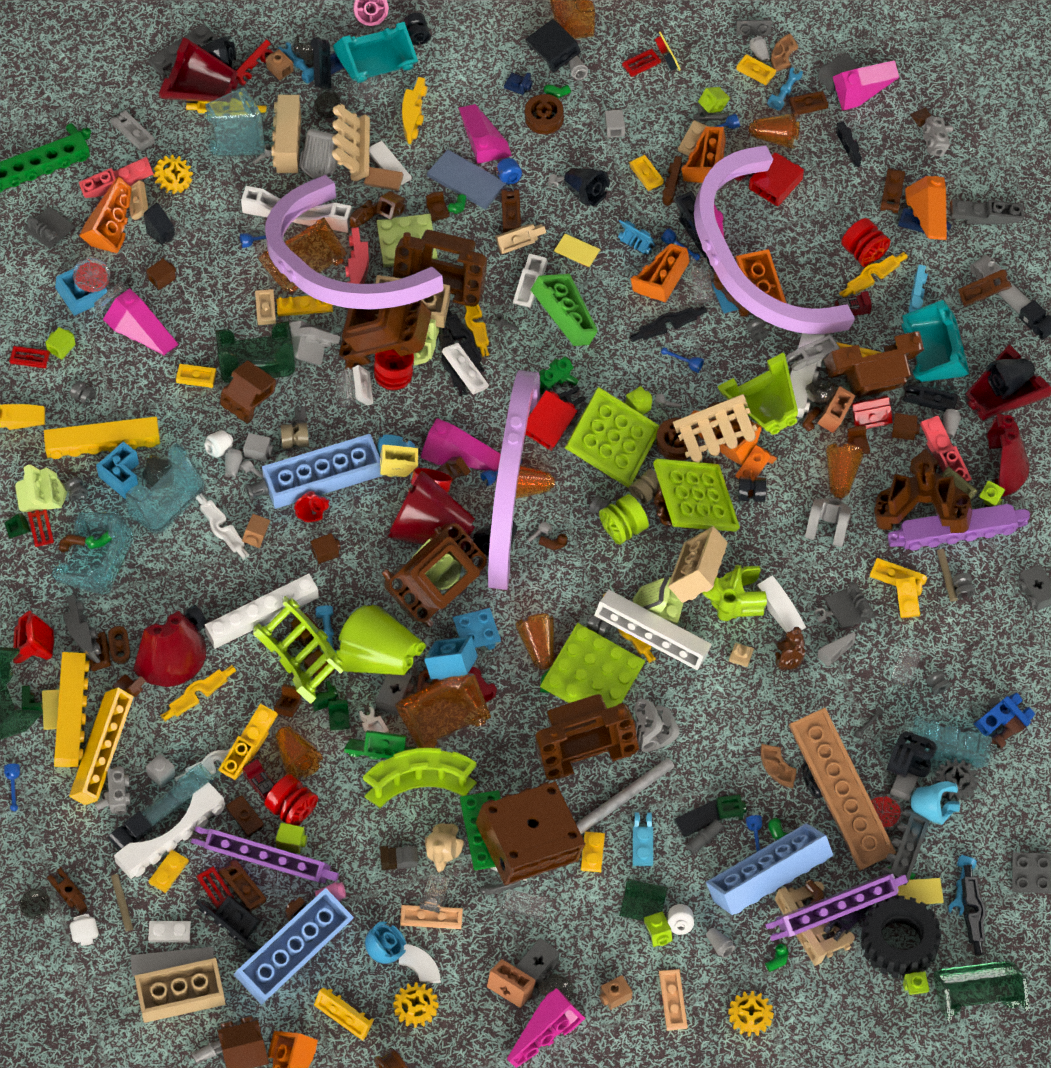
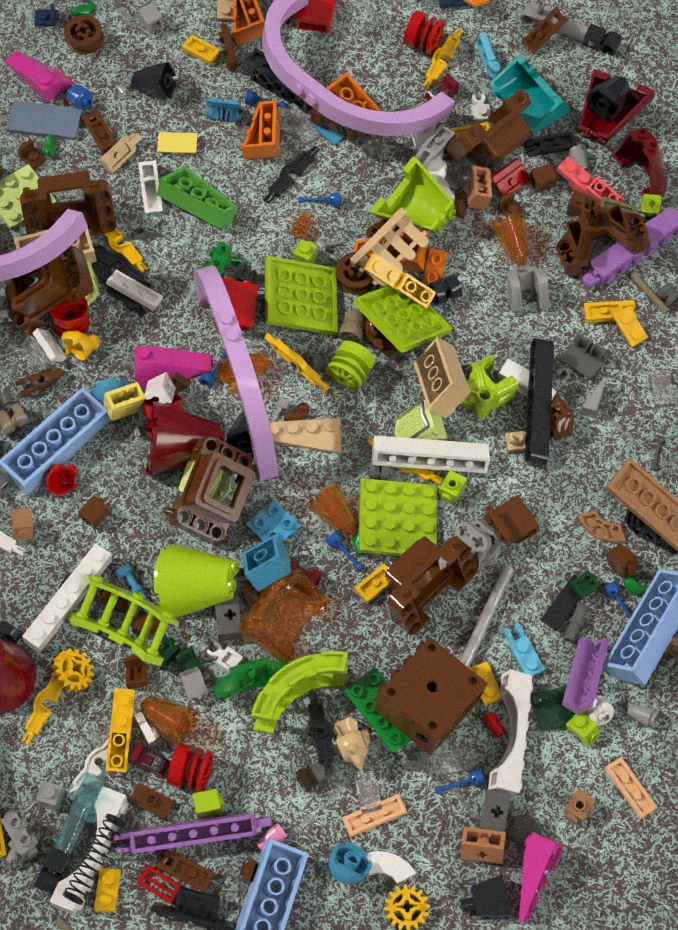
camera: 25 degrees left, 5 degrees up
(134, 859) = (74, 898): none -> black piece
(235, 673) = (72, 670): none -> yellow gear
(272, 757) = (149, 733): none -> white plate
(332, 733) = (193, 683): none -> light grey brick
(347, 415) = (49, 379): none -> reddish brown hinge
(390, 395) = (80, 343): none -> yellow piece
(418, 833) = (322, 742): none -> black piece
(438, 464) = (160, 387): none -> white hinge
(491, 1031) = (488, 900): none -> black torso
(526, 669) = (335, 541): none -> blue hinge
(534, 722) = (373, 584): none -> yellow plate
(536, 927) = (475, 779): none -> blue hinge
(559, 567) = (312, 434): none -> tan wing
(576, 491) = (292, 357): none -> yellow piece
(578, 884) = (493, 724): none -> red pin
(613, 870) = (515, 692): none -> white arch
(651, 375) = (301, 225): none -> clear orange cone
(658, 668) = (452, 487): none -> lime brick
(683, 882) = (585, 675): none -> medium lavender fence
(694, 721) = (511, 521): none -> reddish brown piece
(708, 461) = (399, 281): none -> yellow slope
(777, 801) = (622, 560): none -> reddish brown brick
(781, 624) = (539, 401): none -> black beam
(882, 337) = (480, 110): none -> white plate

